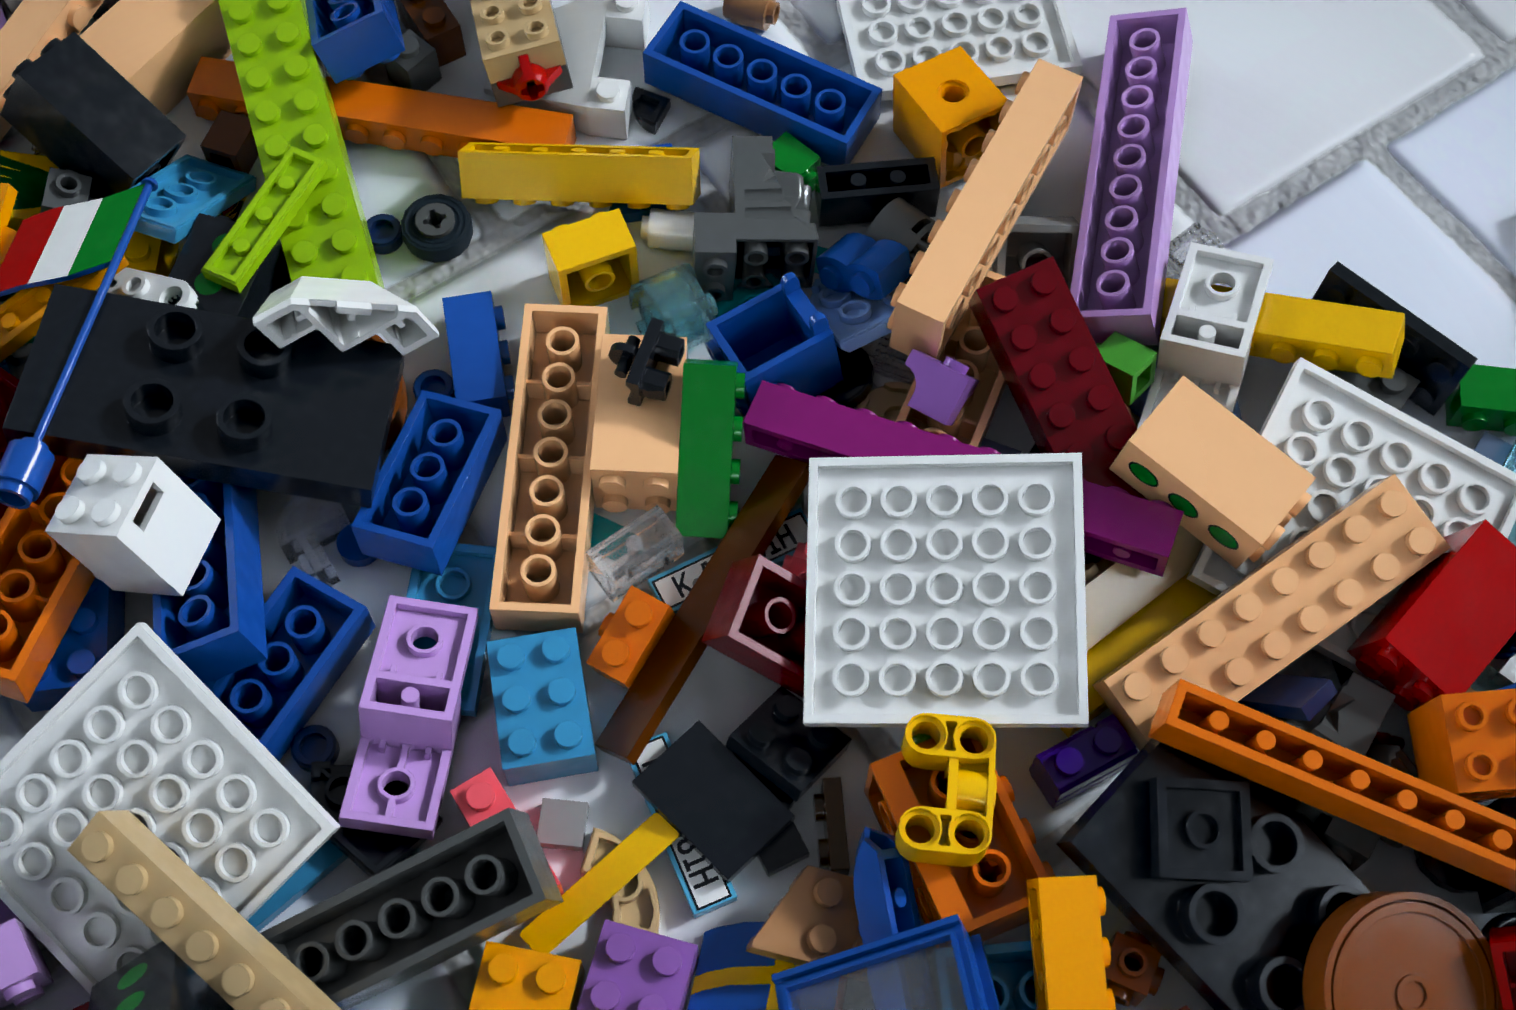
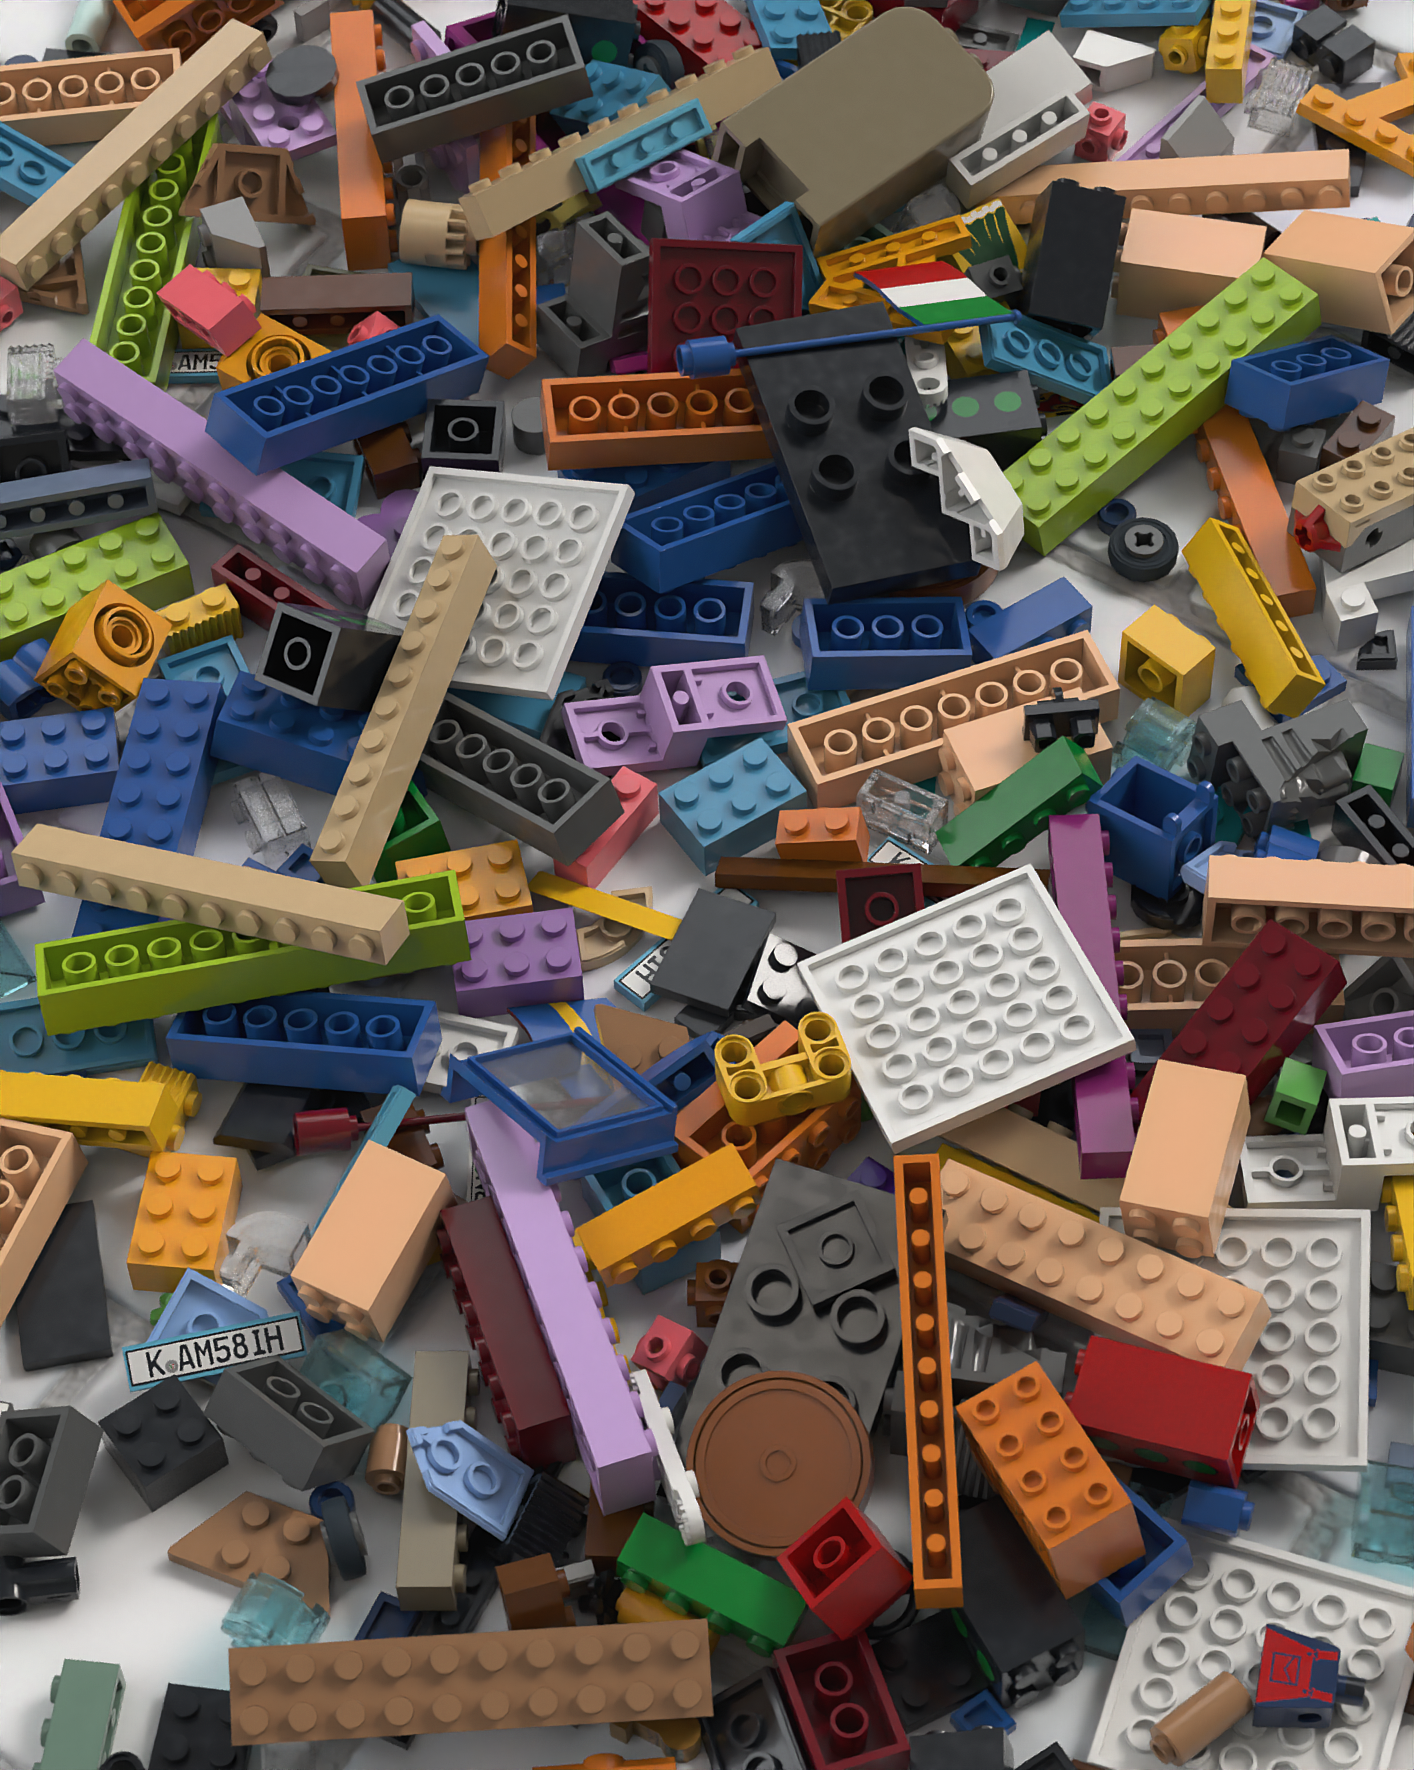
camera: 70 degrees right, 10 degrees down
(129, 549) = (711, 473): white container -> none
(265, 219) = (1046, 412): lime tile -> none
(562, 824) = (644, 866): light grey tile -> none
(939, 386) = (1173, 946): medium lavender brick -> none

